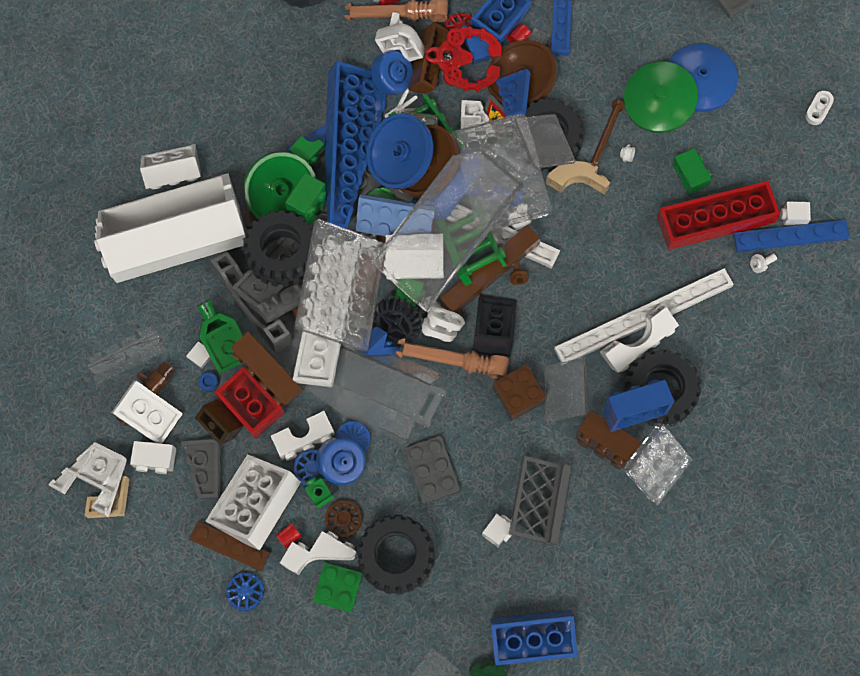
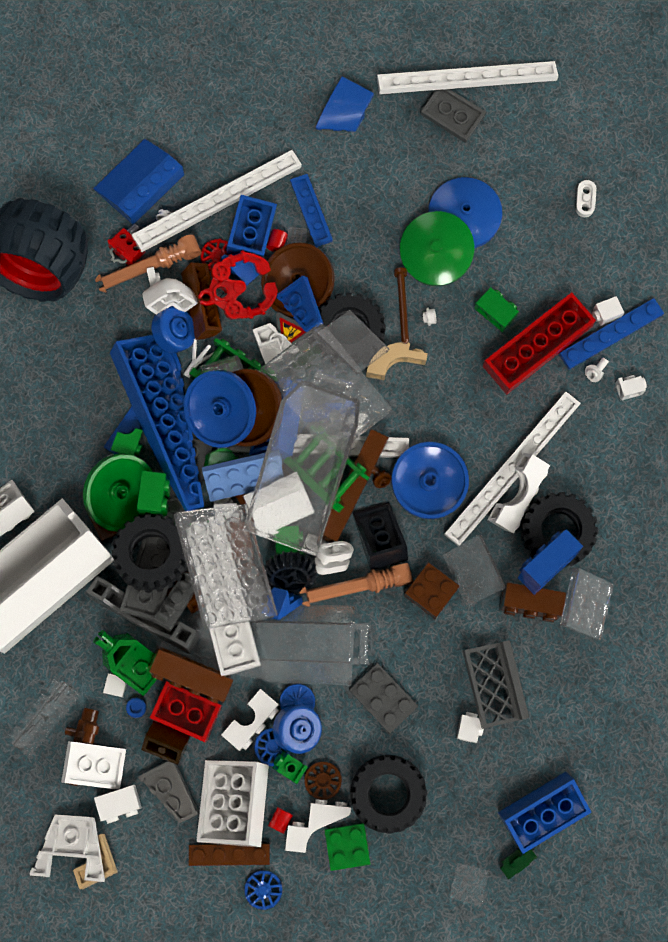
camera: 30 degrees left, 5 degrees up
(562, 294) = (430, 480): none -> blue dish
(788, 289) = (630, 387): none -> white brick

